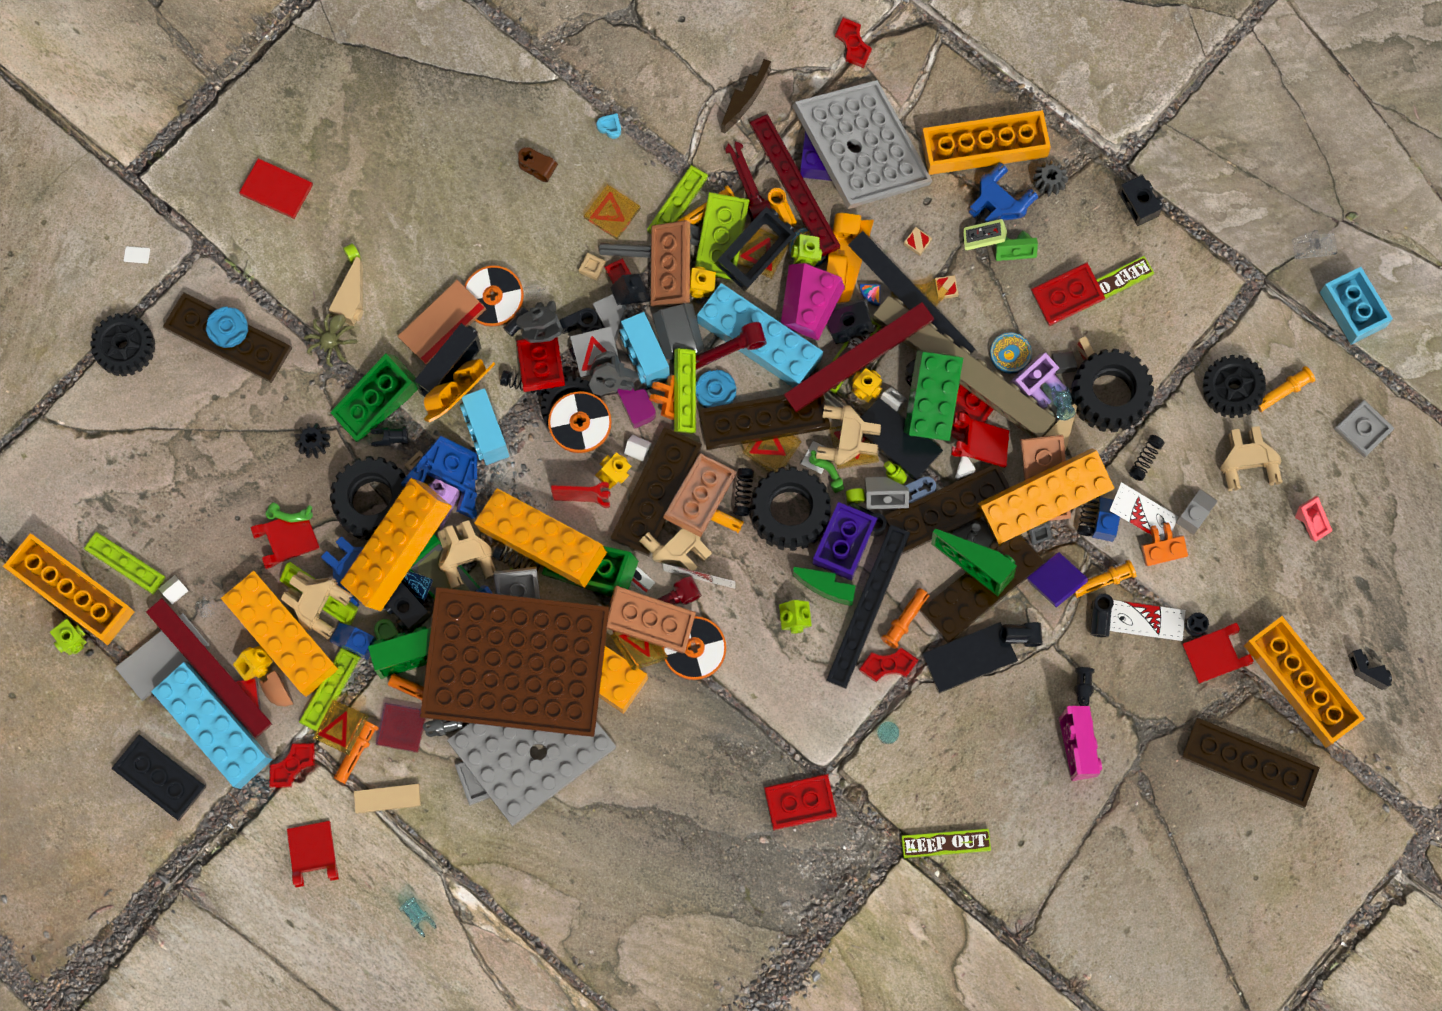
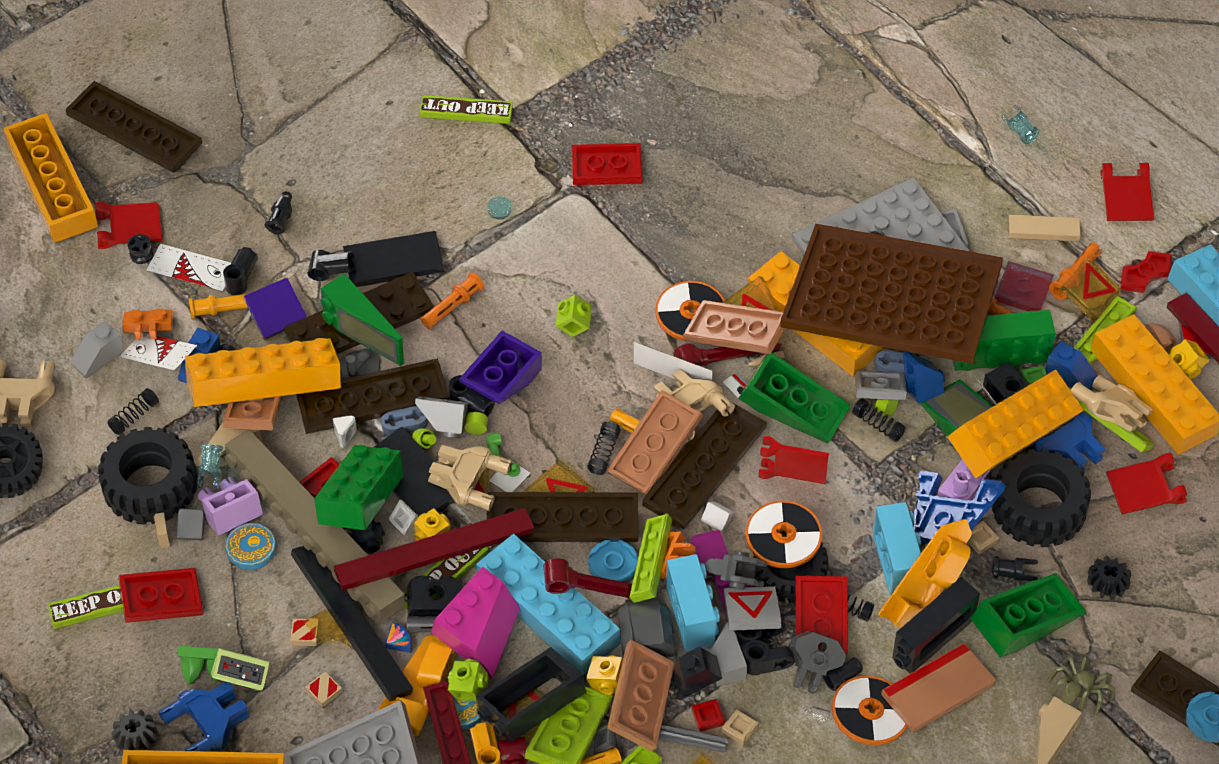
camera: 170 degrees left, 20 degrees down
(274, 511) = (1126, 500): bright green piece -> none
(462, 547) = (938, 423): tan connector -> none
(540, 537) = (847, 423): light orange brick -> none
(613, 469) = (751, 486): yellow brick -> none
(797, 482) = (554, 440): black tyre -> none
(824, 585) = (533, 336): green slope -> none
(868, 607) = (489, 317): black tile -> none
(879, 666) = (493, 266): red tile -> none
(982, 441) = (313, 448): red flag -> none
(1080, 742) = (303, 159): dark pink wedge -> none
(1140, 211) = (31, 673): black brick -> none

